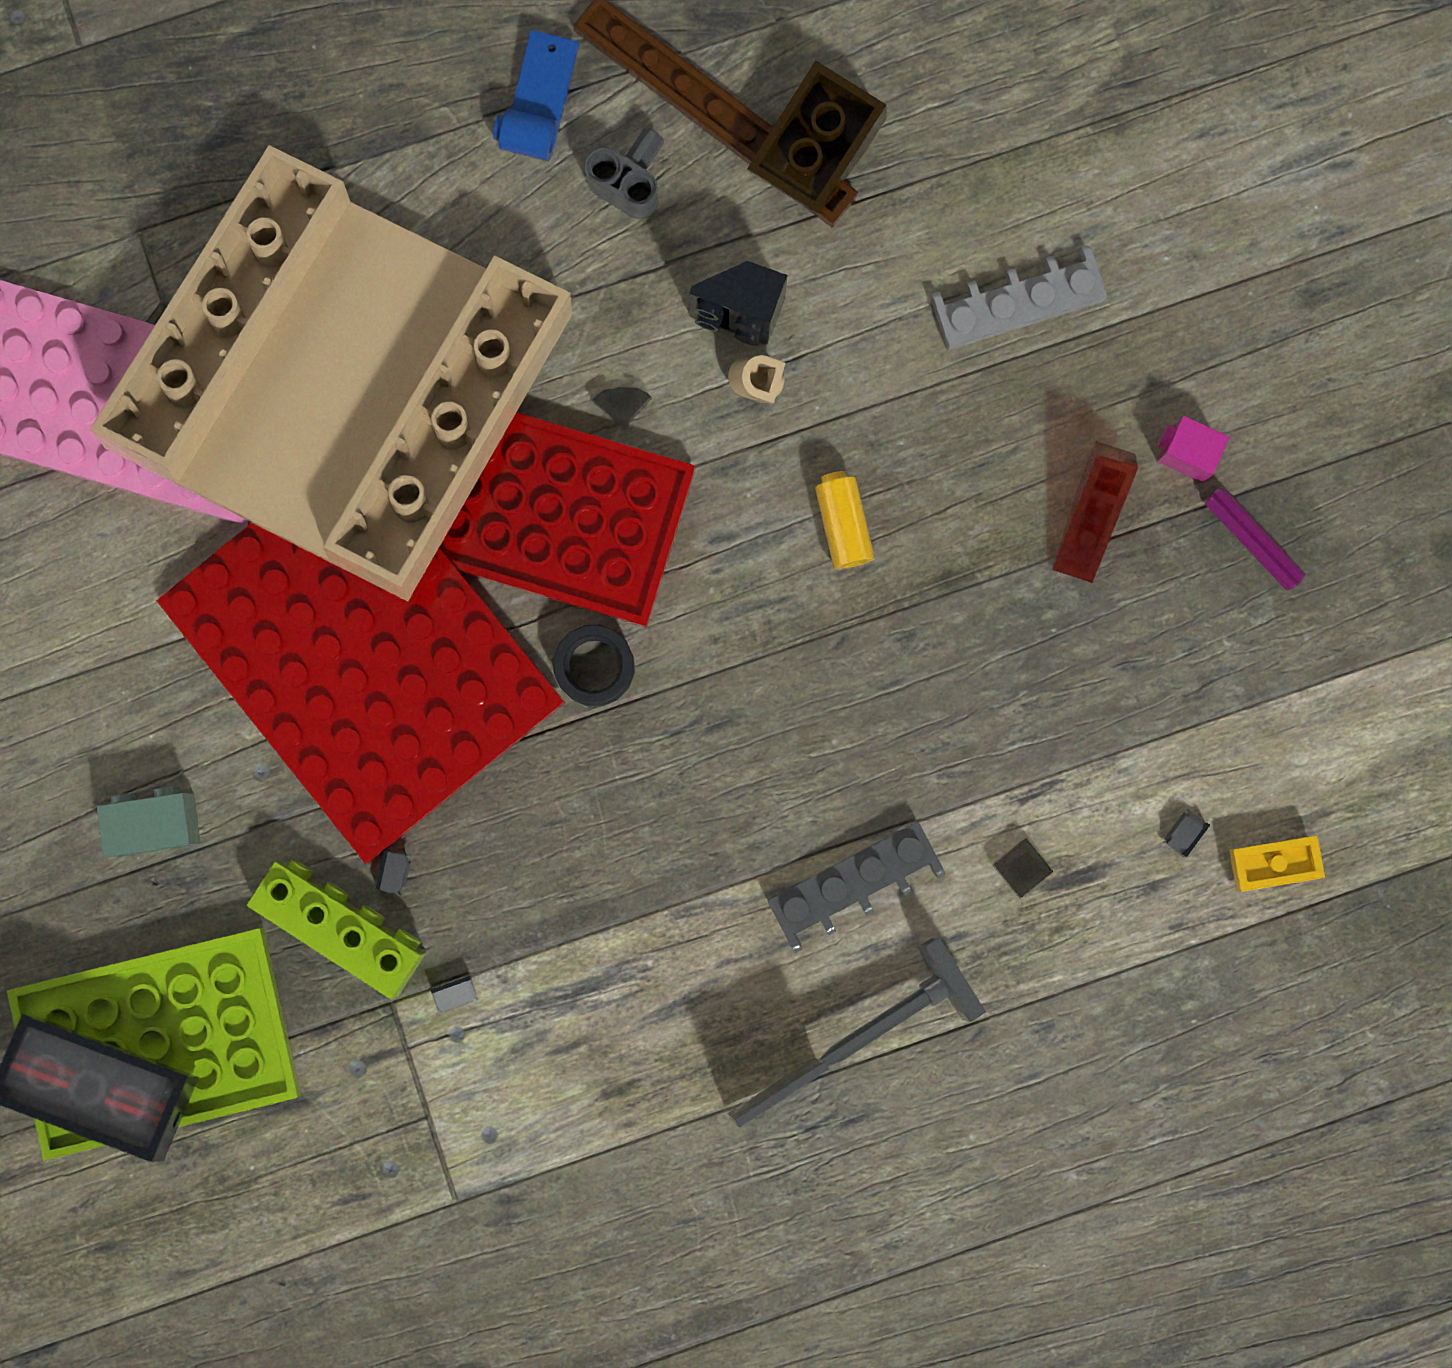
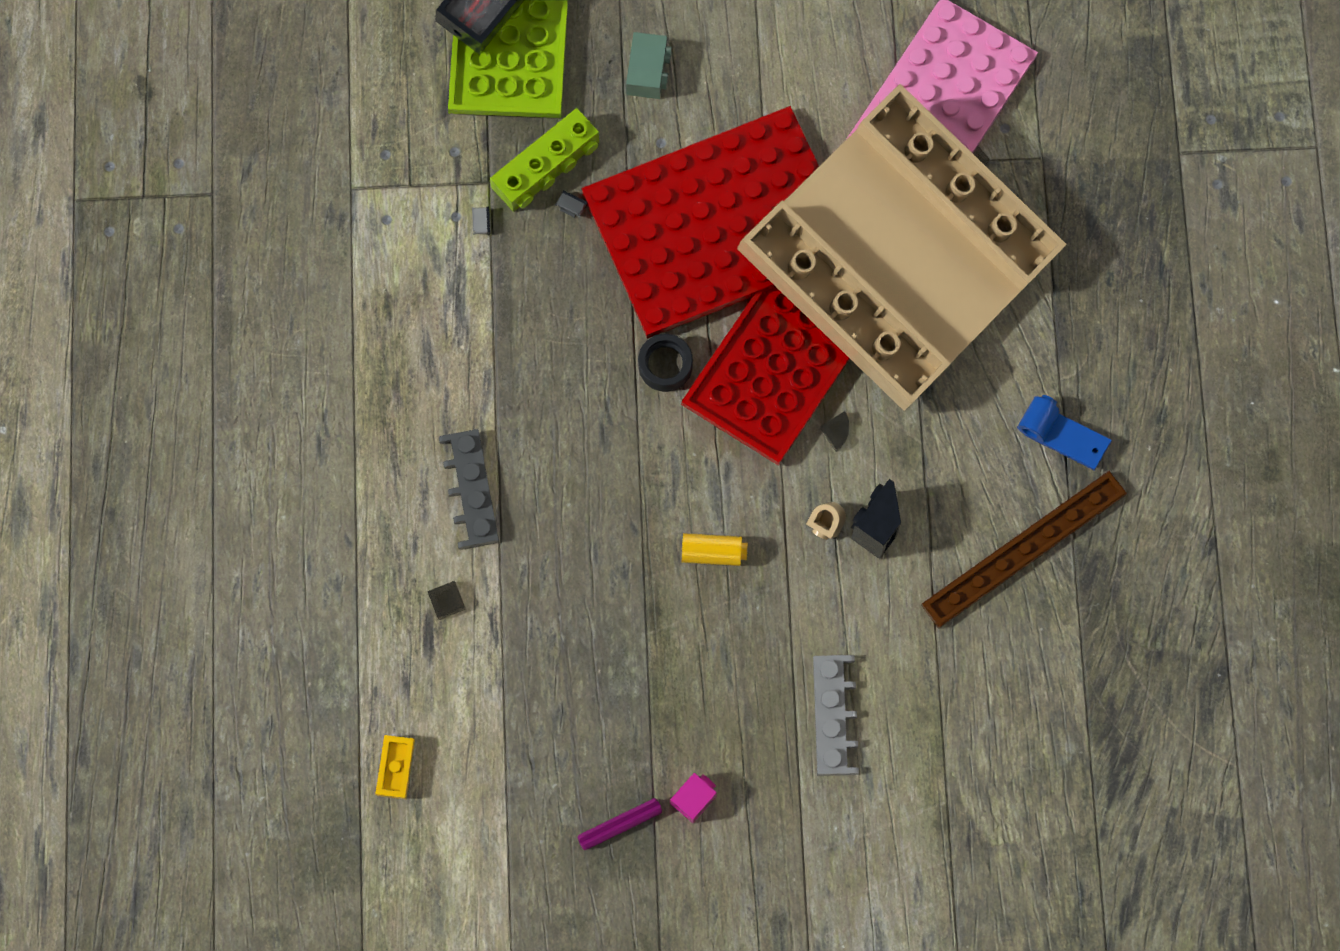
camera: 110 degrees right, 10 degrees down
(628, 175) = (992, 475): dark grey beam -> none
(818, 138) = (980, 605): dark brown slope -> none
(945, 982) = (387, 524): dark grey piece -> none
(1095, 511) = (671, 718): clear red slope -> none
(1186, 833) = (434, 715): dark grey piece -> none

